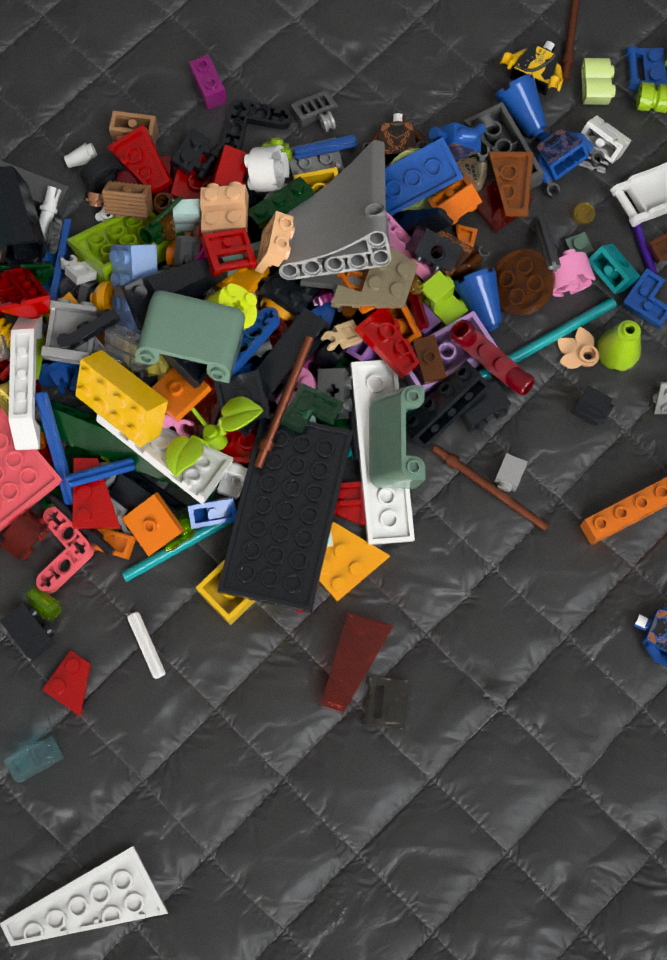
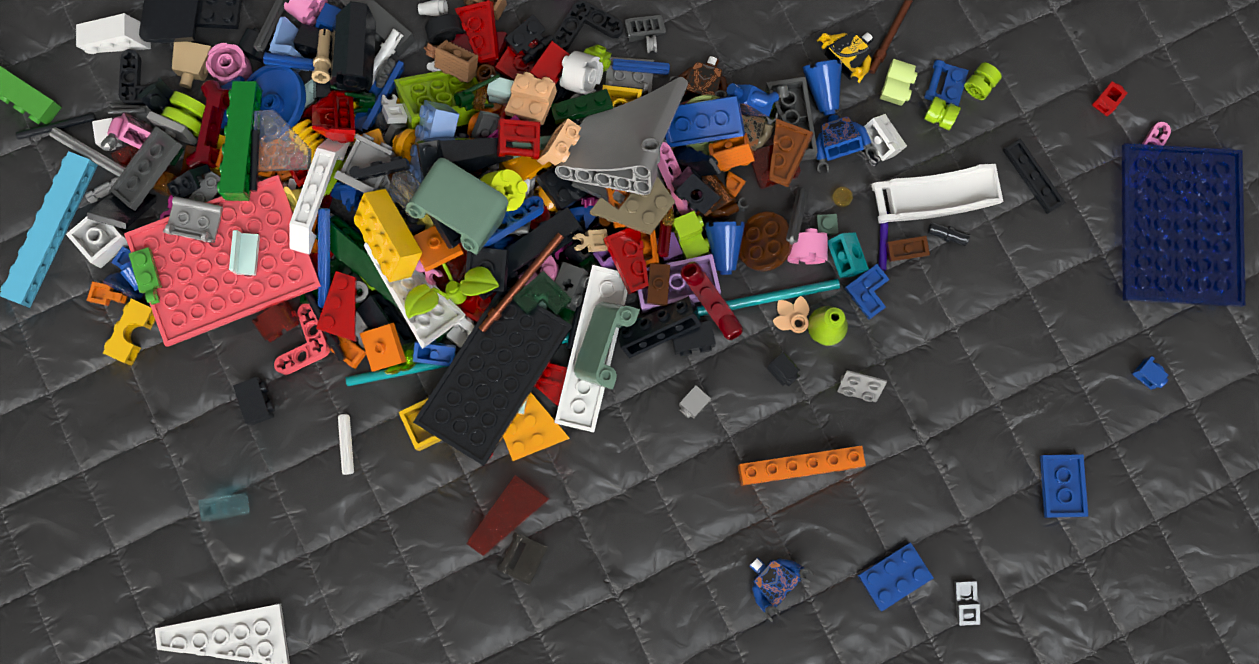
camera: 20 degrees right, 5 degrees up
(44, 604) = (276, 384): clear neon green cone -> none
(70, 682) = (274, 454): red wing -> none
(100, 472) = (352, 290): blue axle -> none
(453, 462) = (651, 375): copper bar -> none

